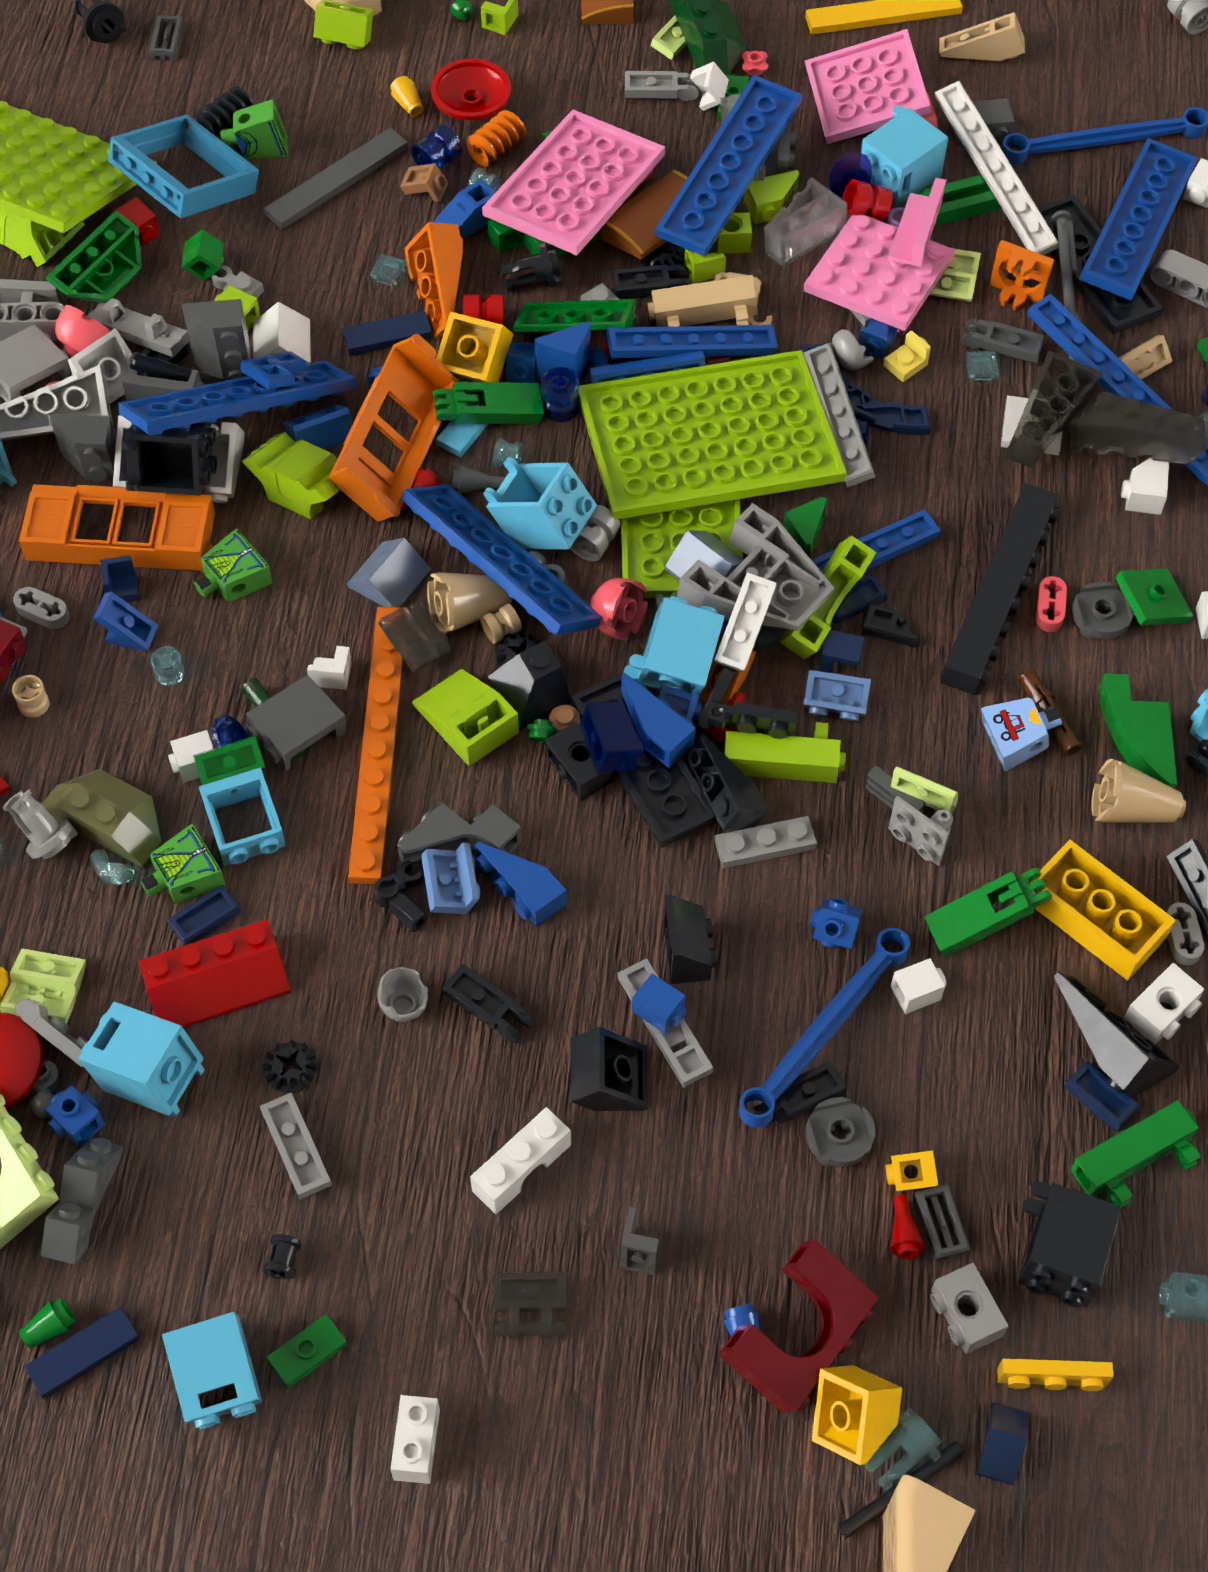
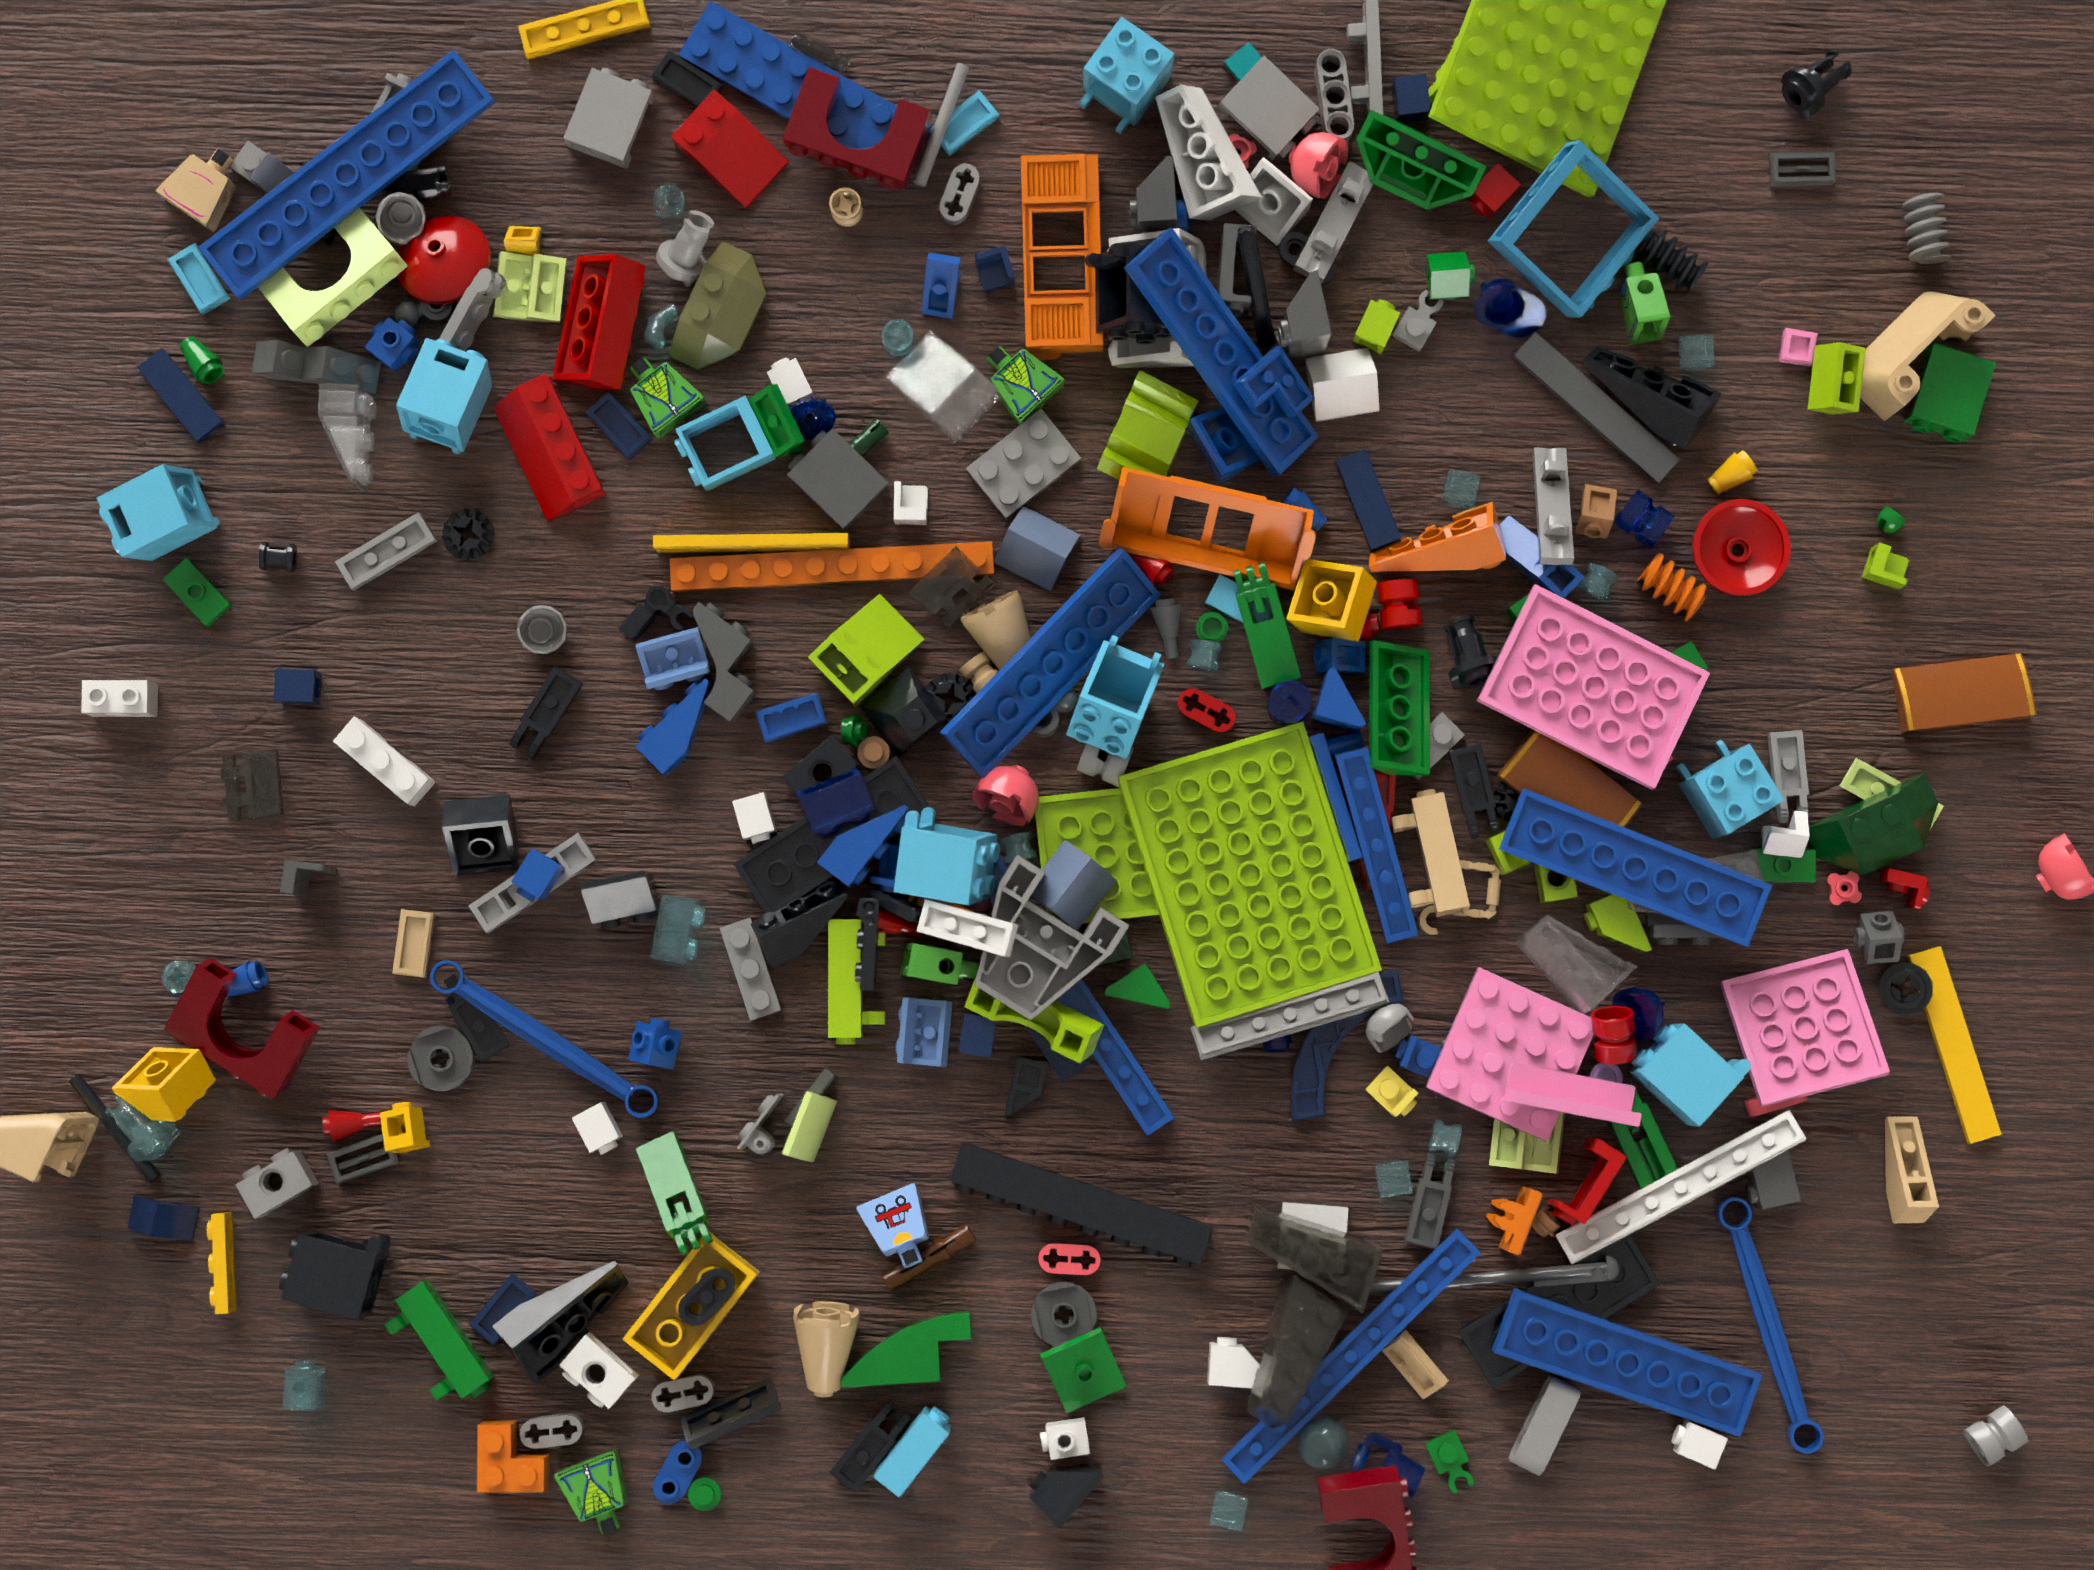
camera: 85 degrees right, 25 degrees up
(38, 264) = (1411, 98): none -> dark blue panel
(93, 920) = (599, 322): none -> red slope
(160, 1163) = (347, 418): none -> clear slope
(223, 627) = (944, 386): none -> clear slope
(239, 219) = (1509, 308): none -> clear blue piece
(302, 112) = (1696, 352): none -> clear light blue tile
(309, 580) = (1023, 464): none -> light grey plate
(311, 52) = (1797, 347): none -> bright pink tile
(344, 125) = (1665, 404): none -> black wedge
(344, 804) = (750, 542): none -> yellow tile
(416, 200) = (1553, 506): none -> light grey hinge
(429, 1242) = (297, 686): none -> dark blue panel
(482, 449) = (1212, 627): none -> green plate
(522, 784) = (791, 718): none -> blue plate
(563, 444) = (1203, 718): none -> red beam
(617, 821) = (754, 818): none -> white brick
(671, 106) = (1730, 790): none -> medium azure container
(716, 1154) = (413, 943): none -> tan tile
(725, 890) = (676, 929): none -> clear light blue bracket
(736, 1406) = (170, 979): none -> clear light blue wheel
(758, 19) = (1902, 881): none -> red bracket
(774, 666) = (923, 963): none -> bright green torso
(797, 38) = (1879, 937): none -> dark grey brick
(849, 27) = (1893, 996): none -> black gear
(948, 323) = (1444, 1137): none -> clear light blue wheel
(987, 219) = (1594, 1185): none -> red panel
(1096, 876) = (707, 1296): none -> black plate

